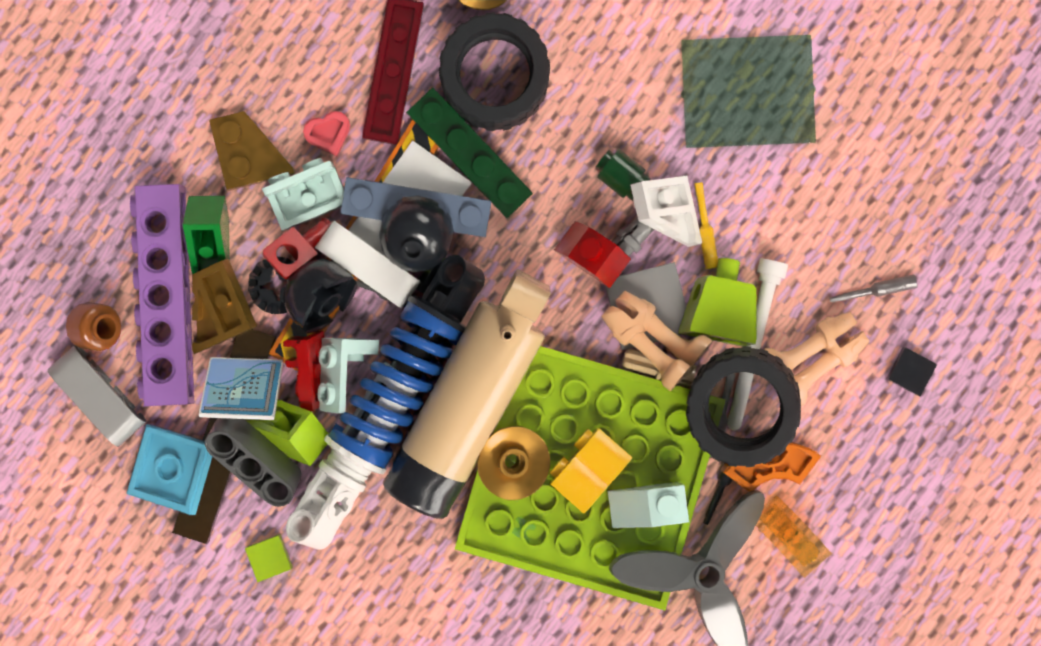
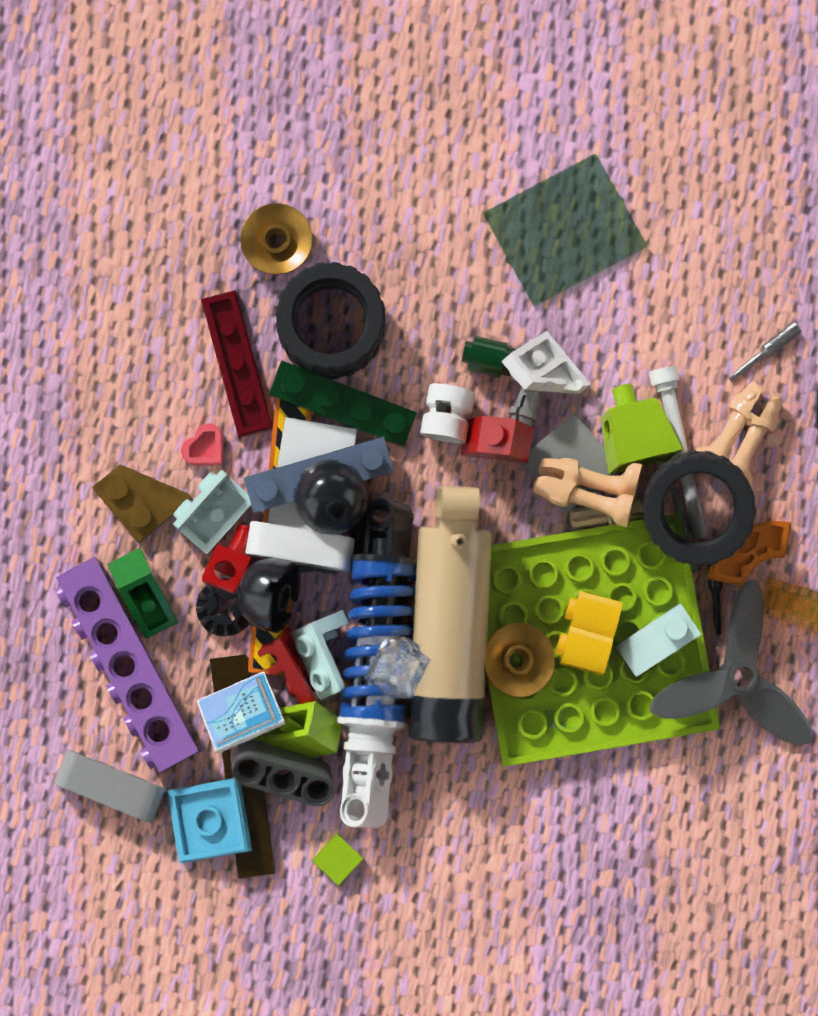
camera: 30 degrees left, 5 degrees down
(93, 326) = (77, 723): dark orange head -> none
(218, 306) = (182, 651): pearl gold wing -> none
(398, 420) = (397, 668): none -> clear brick
(551, 218) = (442, 425): none -> white wheel
(706, 231) = (589, 372): yellow piece -> none

